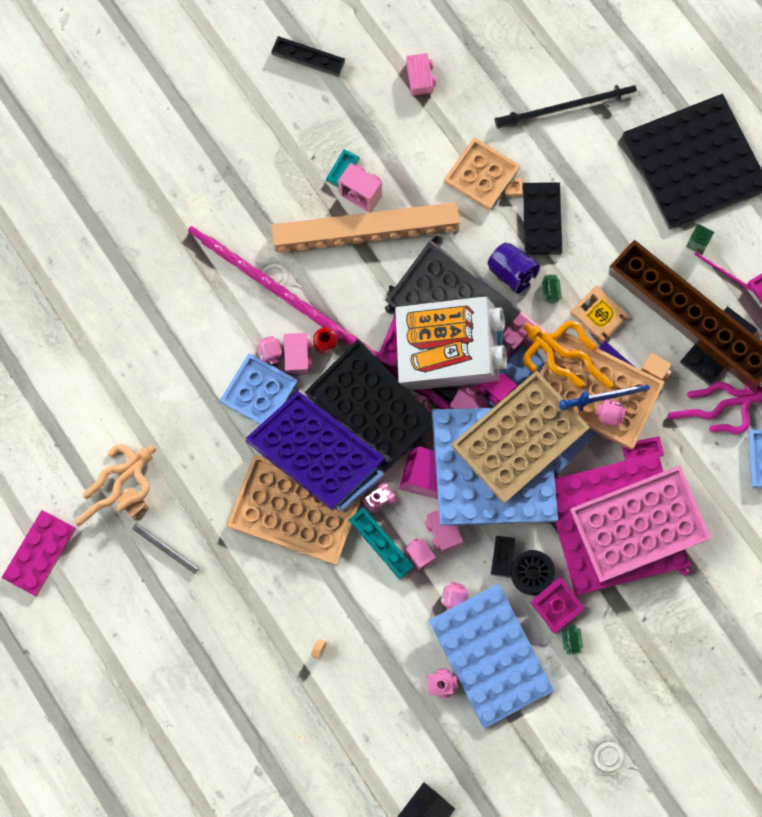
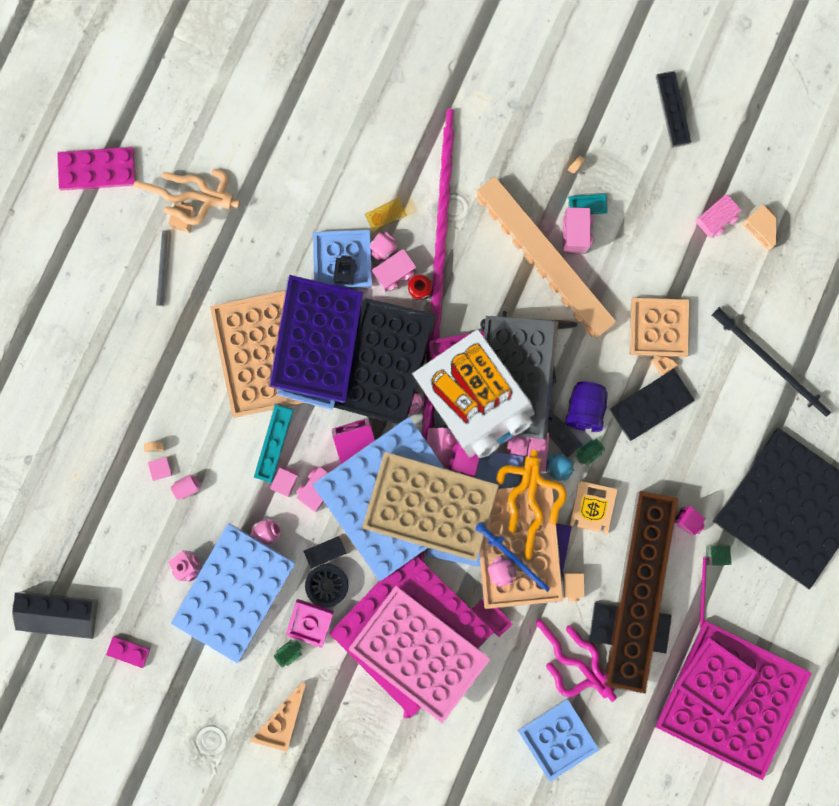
camera: 55 degrees right, 10 degrees up
(244, 333) = (385, 214): none -> clear yellow plate
(271, 385) = (341, 263): none -> black brick
(303, 157) = (576, 164): none -> light nougat tile
(341, 656) = (160, 468): none -> bright pink tile
(371, 642) = (185, 487): none -> bright pink brick
(378, 498) = (315, 418): bright pink plate -> none
(450, 46) = (762, 226): none -> light nougat slope
(486, 783) = (128, 652): none -> dark pink plate
(528, 302) = (562, 436): none -> black hinge
(549, 319) = (559, 467): none -> medium azure head
(632, 687) = (280, 726): none -> light nougat wing
(658, 243) = (689, 520): none -> dark pink slope

